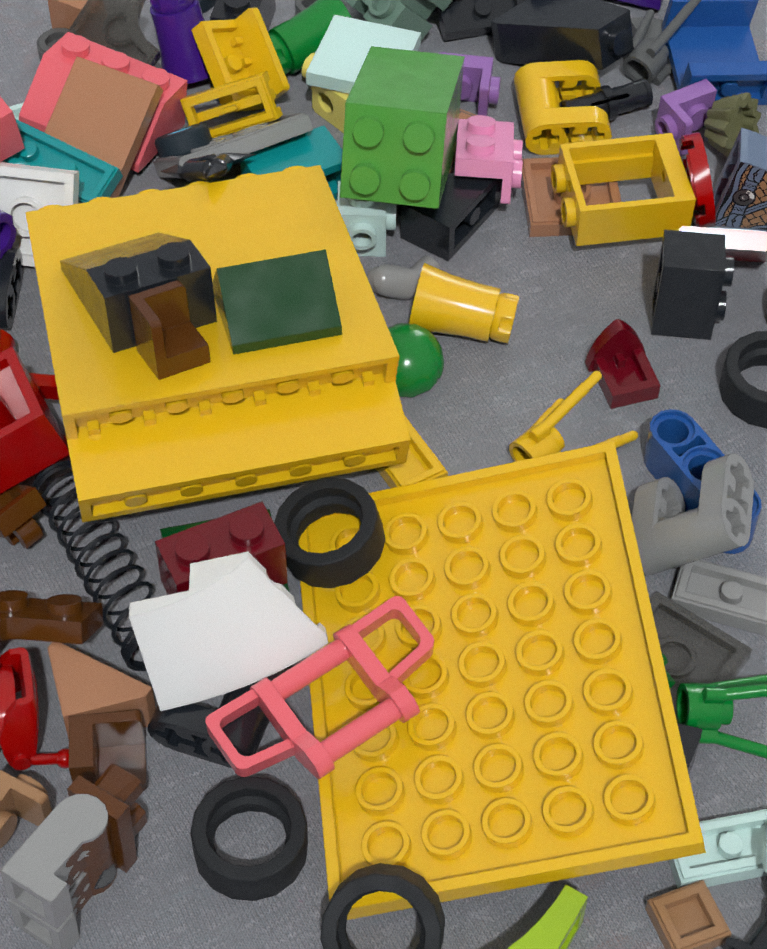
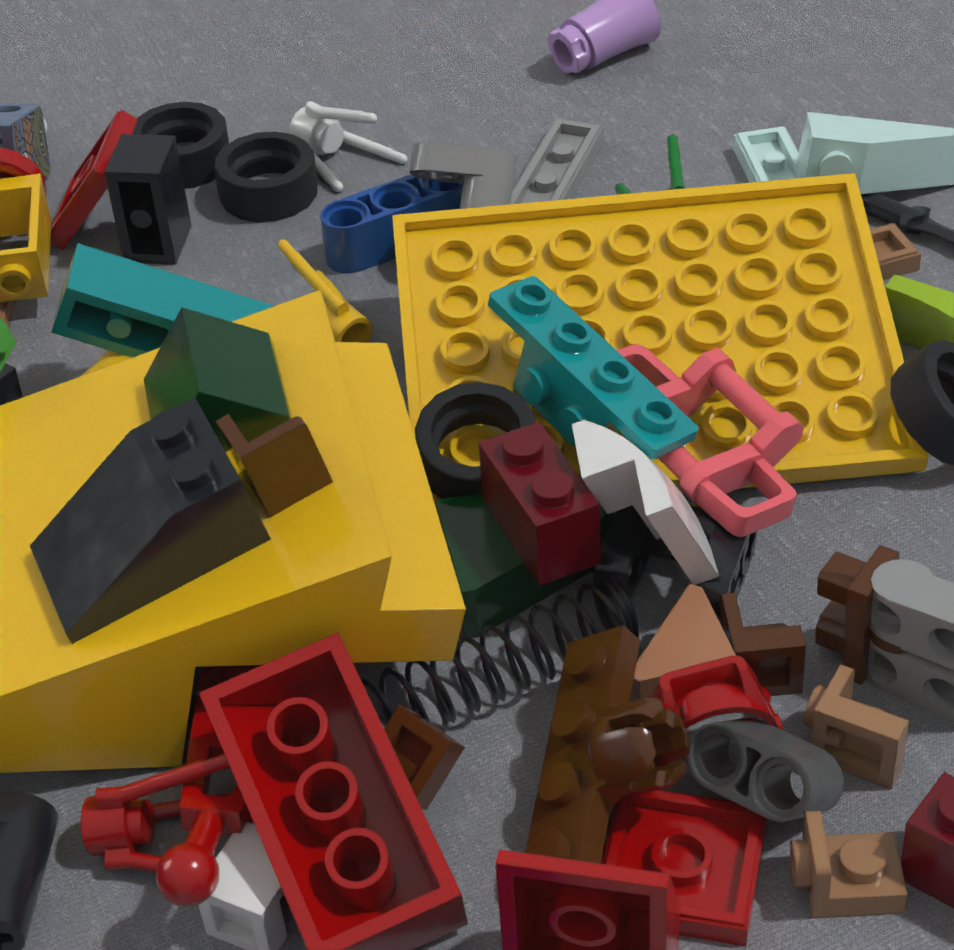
camera: 85 degrees left, 10 degrees down
(240, 796) = (847, 491): black tyre -> none
(380, 593) = (579, 376): none -> teal bracket
(488, 318) = (132, 304): none -> teal brick
(623, 365) = (237, 271): dark red tile -> none

